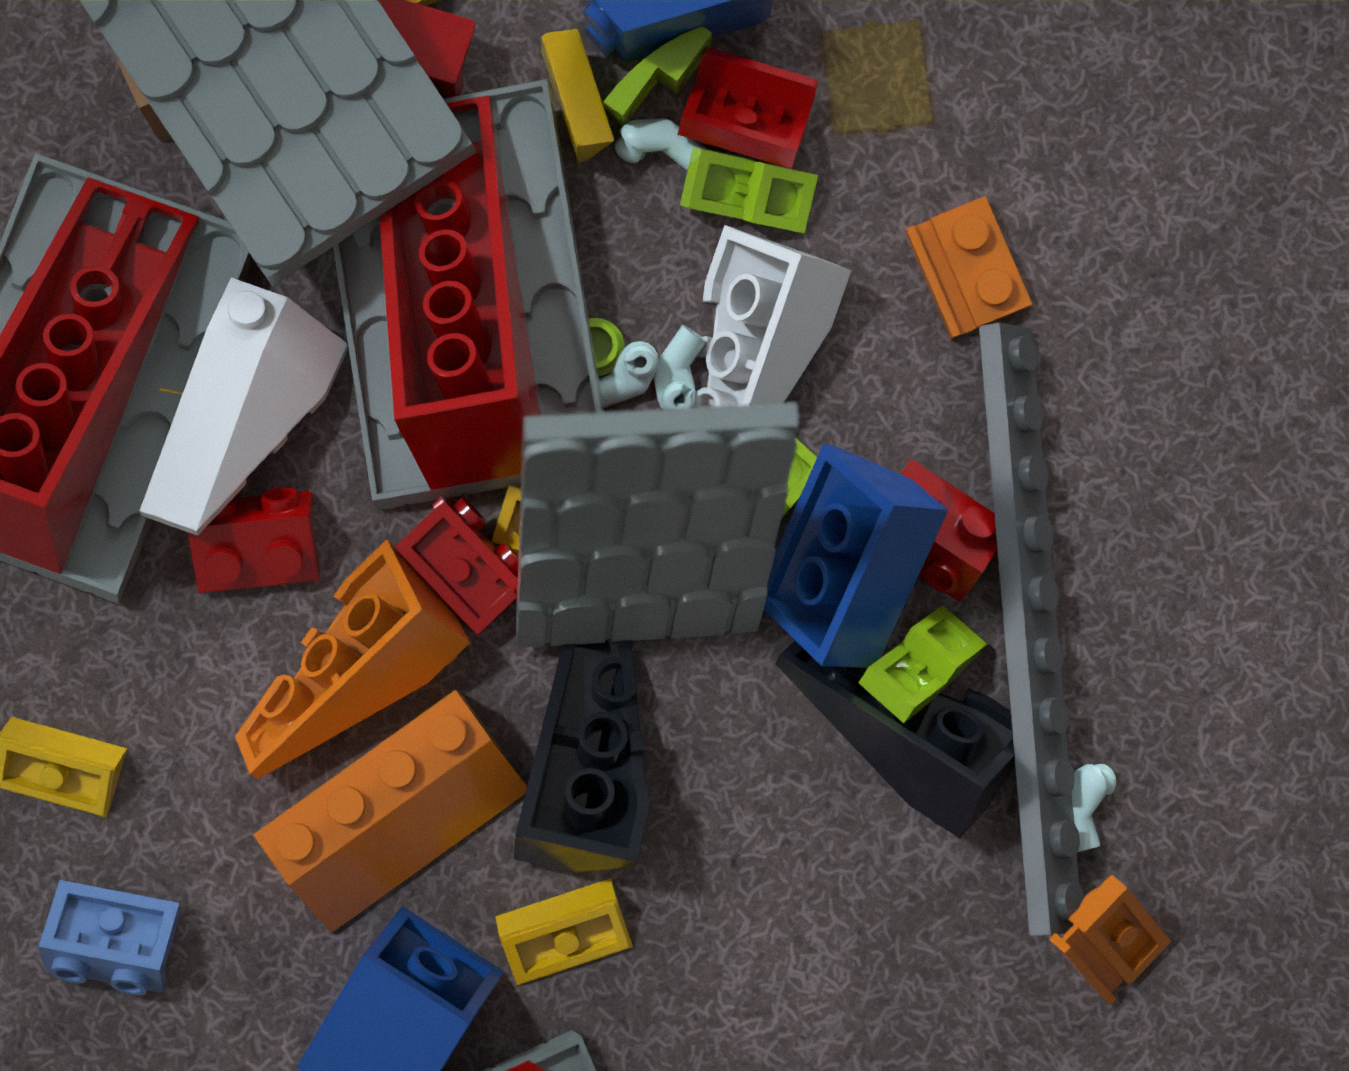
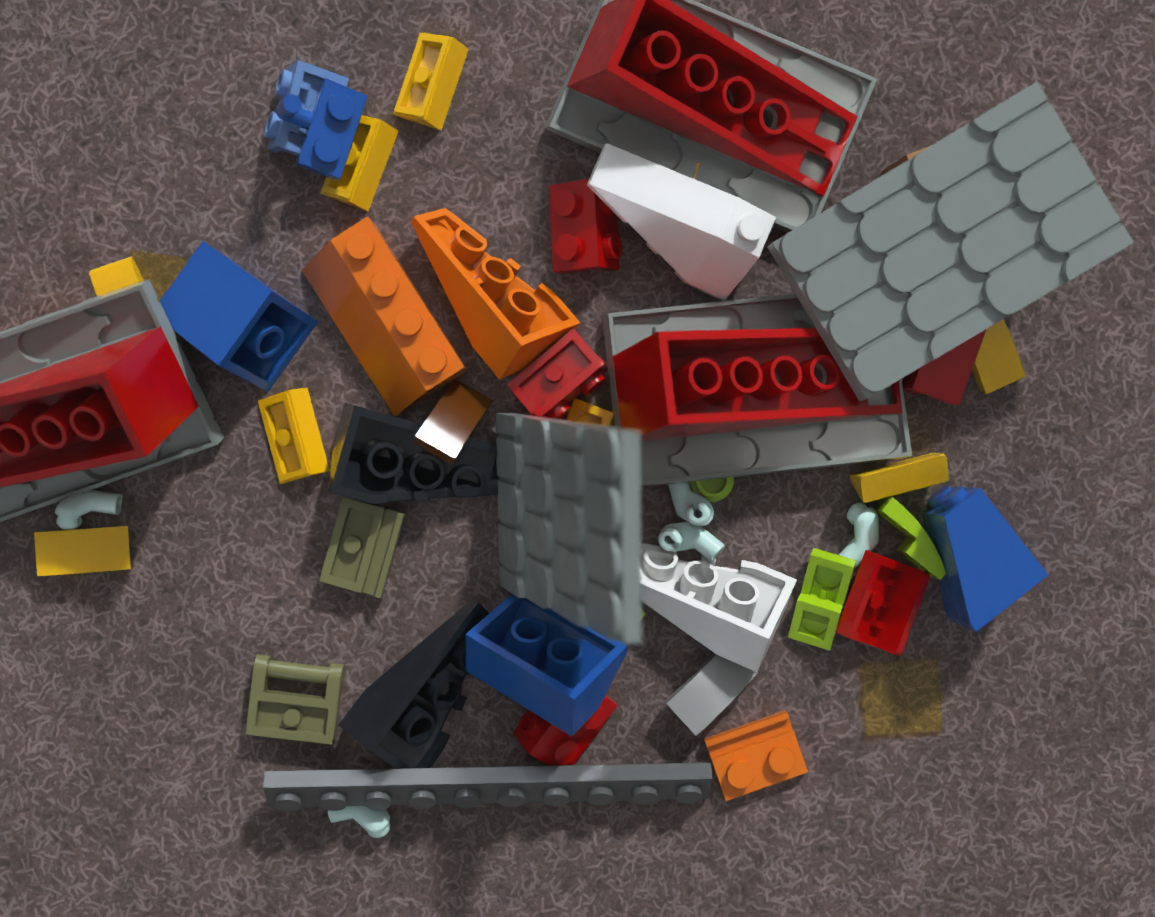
camera: 90 degrees right, 5 degrees up
(130, 901) = (328, 127): none -> blue plate
(174, 860) = (363, 165): none -> yellow slope
(532, 703) = (452, 421): none -> reddish brown slope
(713, 823) = (362, 547): none -> olive plate
(883, 334) = (709, 692): none -> light grey slope
(923, 663) = (466, 705): lime slope -> none
(951, 907) = (294, 714): none -> olive plate
(1111, 938) = (262, 829): orange plate -> none

